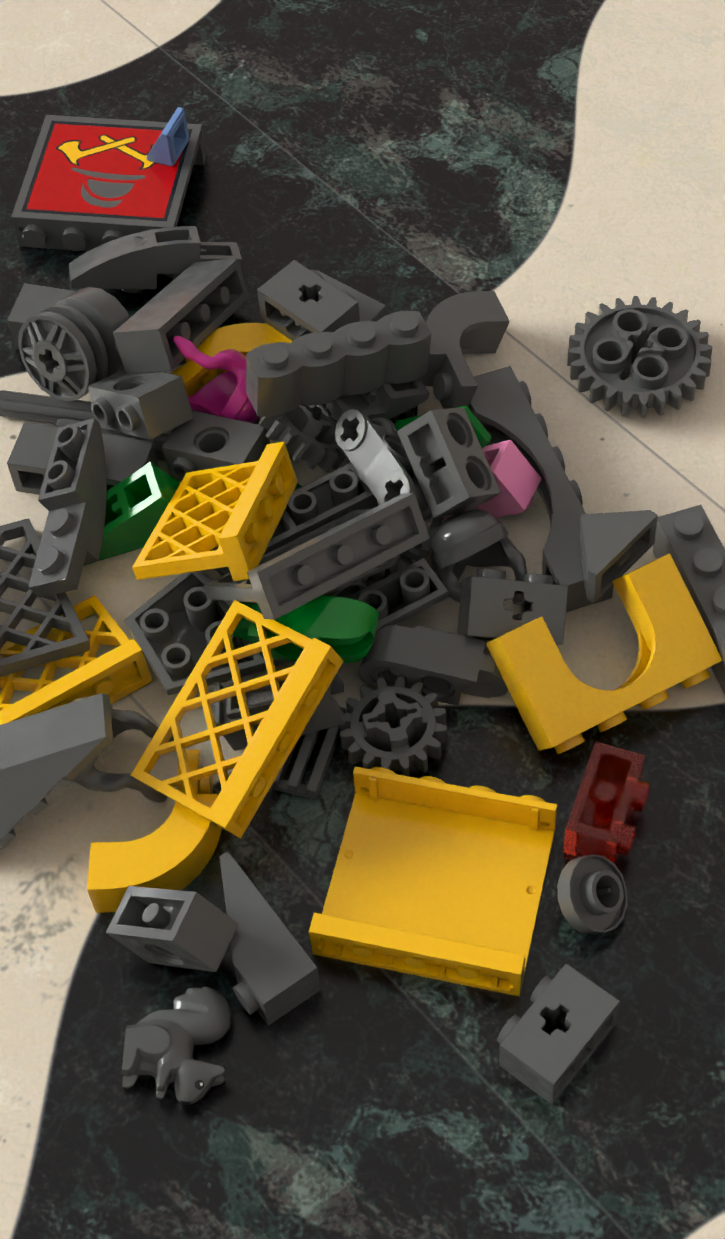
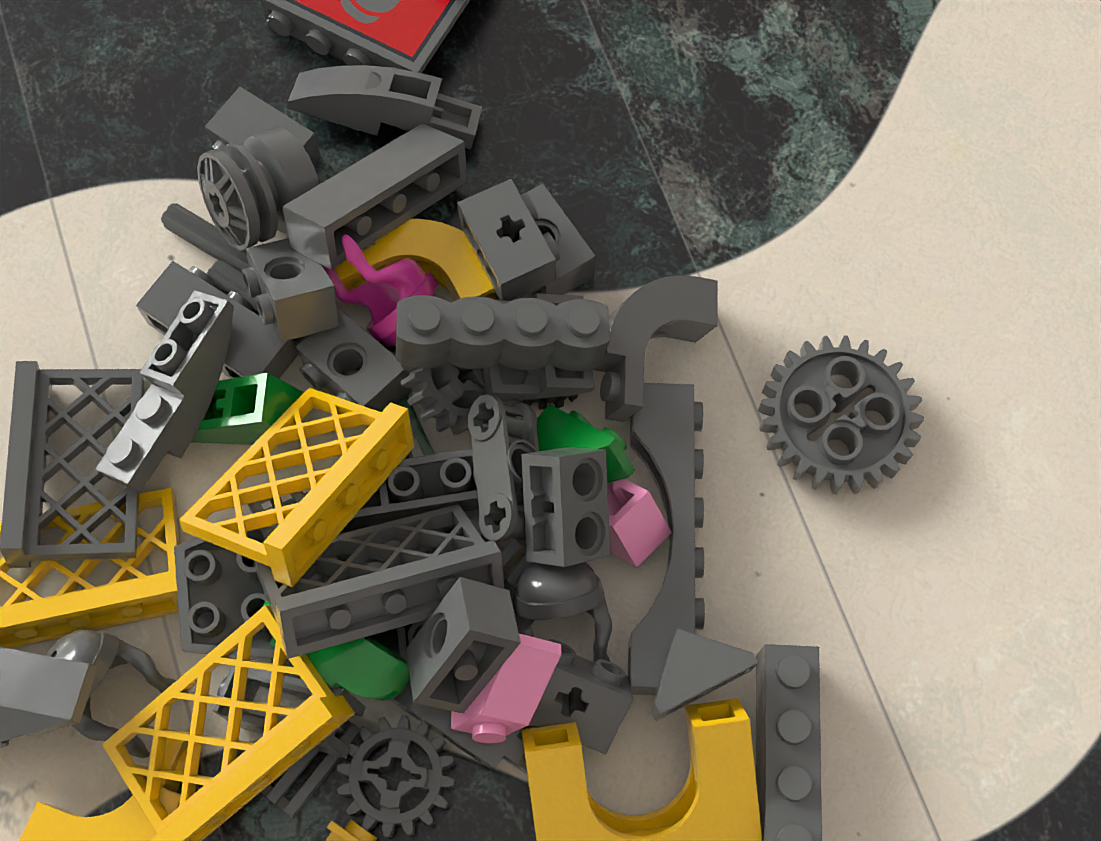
camera: 15 degrees right, 15 degrees up
(413, 568) = (462, 645): none -> dark grey brick
(457, 596) = (512, 693): none -> bright pink slope

